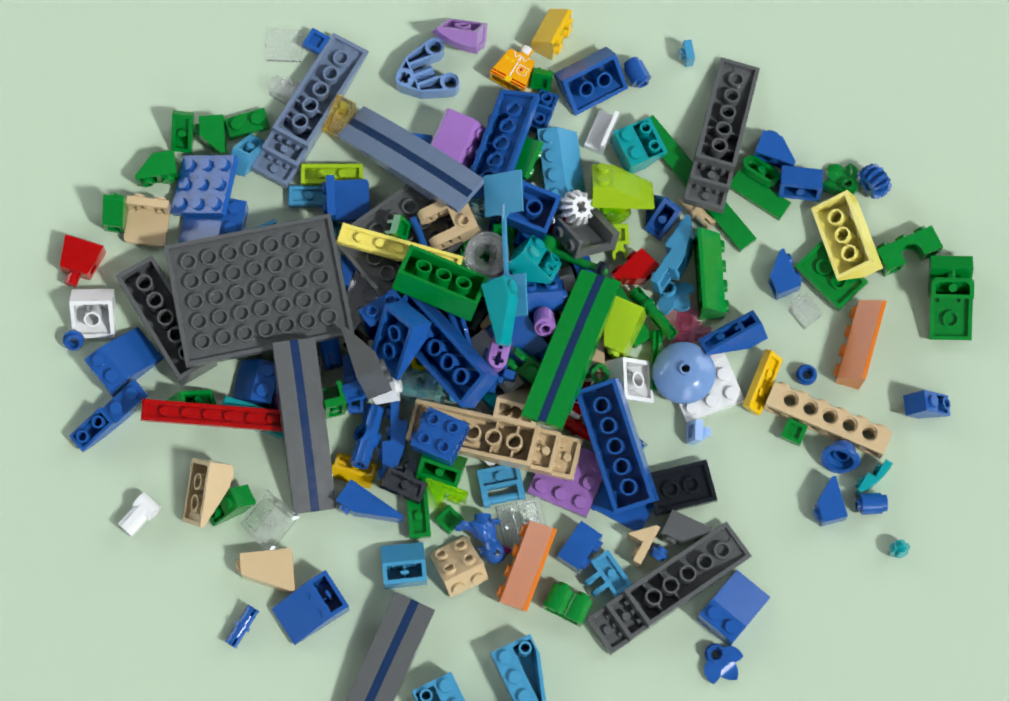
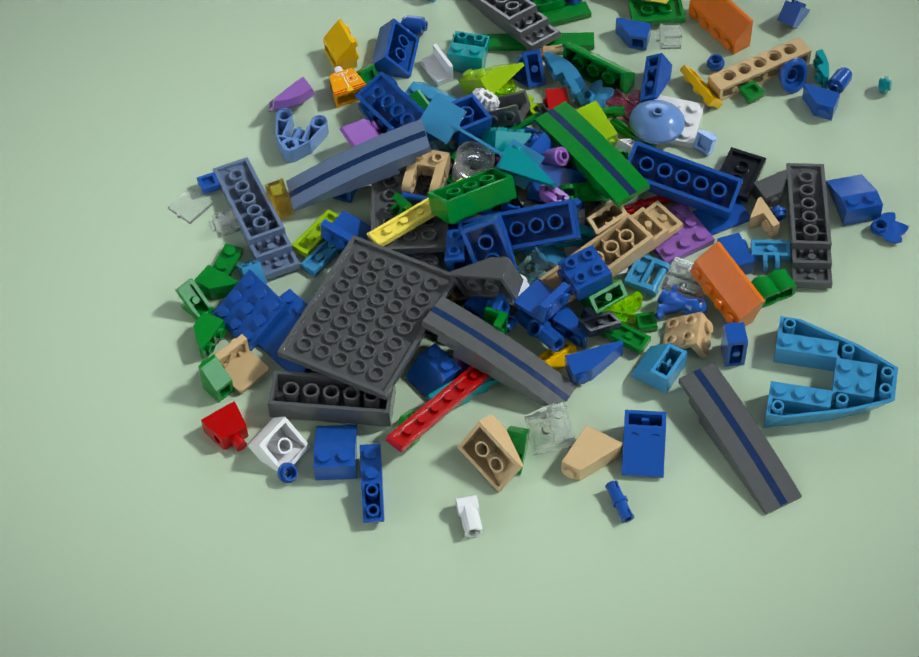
camera: 45 degrees left, 20 degrees down
(388, 419) = (543, 301): none -> blue bracket
(471, 613) = (734, 344): none -> blue brick

